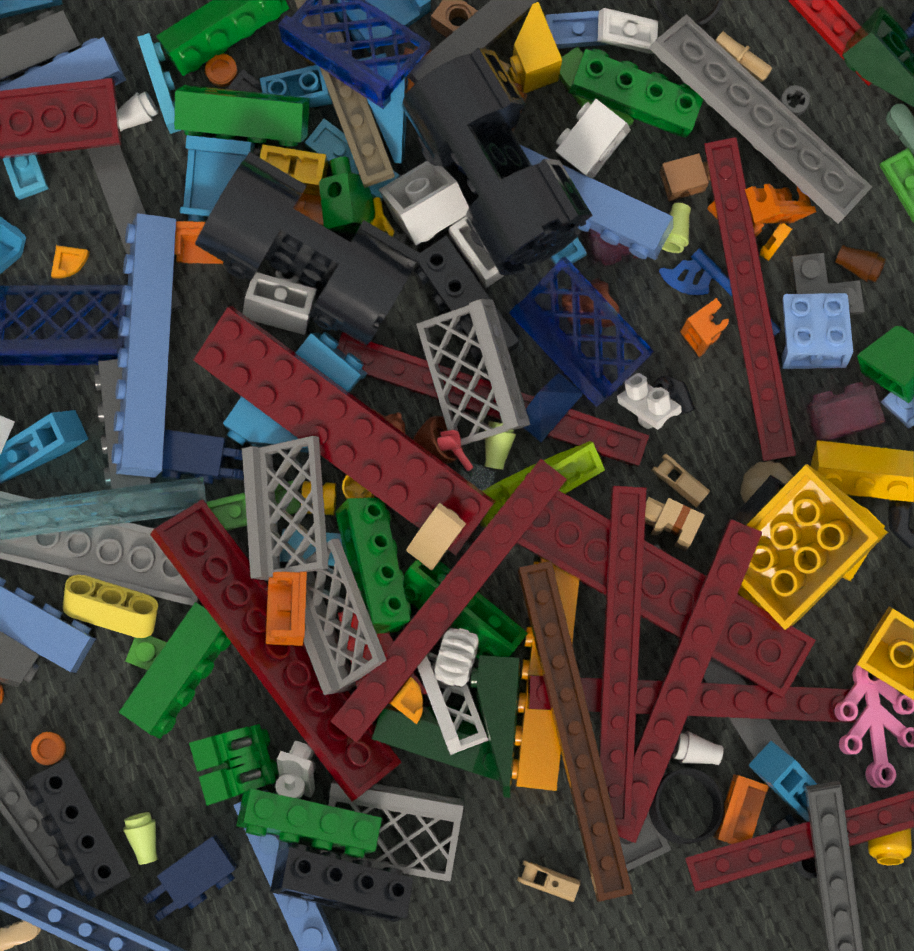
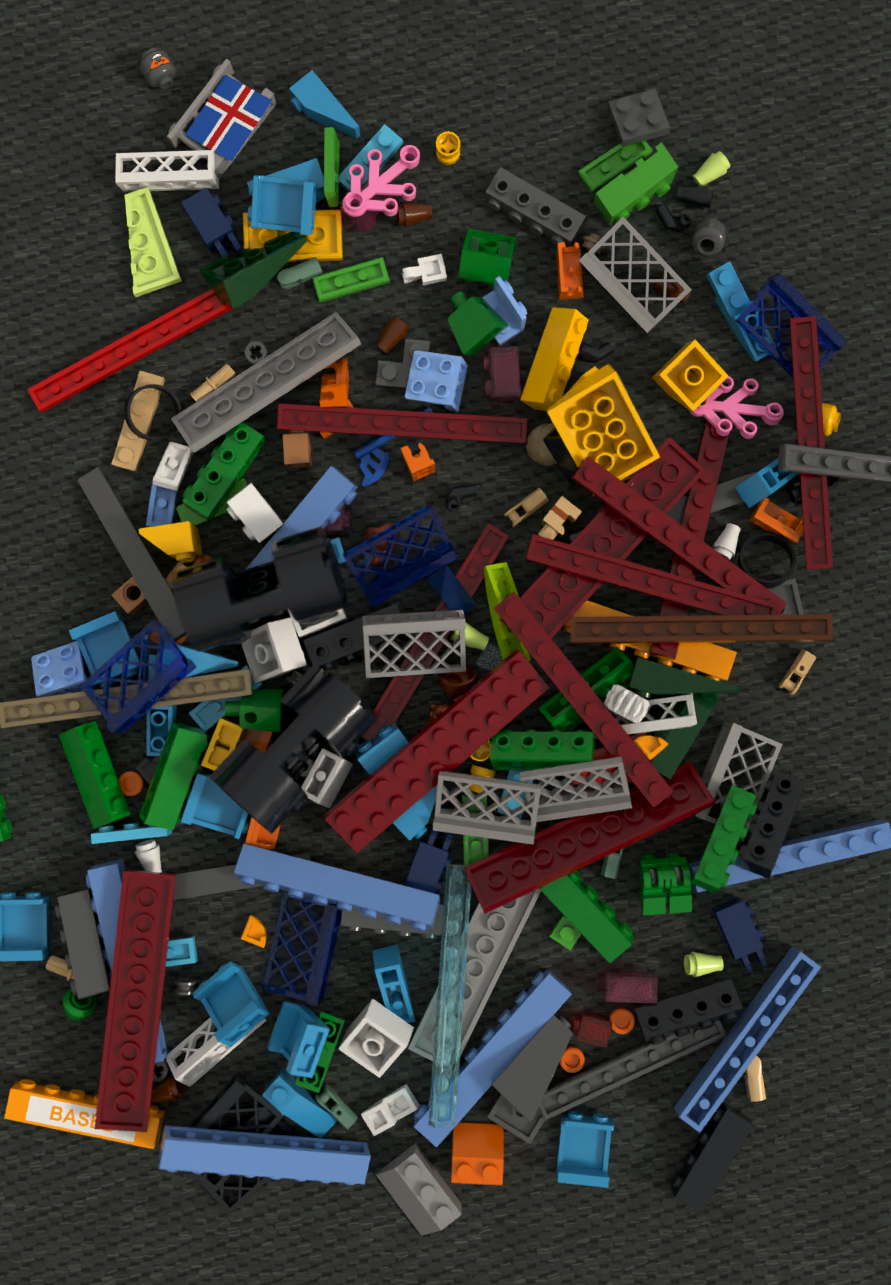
camera: 75 degrees left, 5 degrees up
(31, 710) = (592, 1028): none -> clear red brick
(93, 746) = (630, 986): none -> clear pink brick
(110, 606) = (522, 966): light yellow beam -> none
(247, 691) = (611, 864): none -> sand green bar
(286, 608) = (562, 822): orange hinge -> none
(296, 771) = (683, 841): white hips -> none
(380, 220) = (282, 688): yellow hand -> none
(436, 536) = (534, 698): tan slope -> none
(452, 441) = (461, 671): coral hand -> none
(648, 403) = (464, 518): white hips -> none
(680, 233) = (326, 460): yellowish green cone -> none
(775, 241) = (363, 397): light orange tile -> none

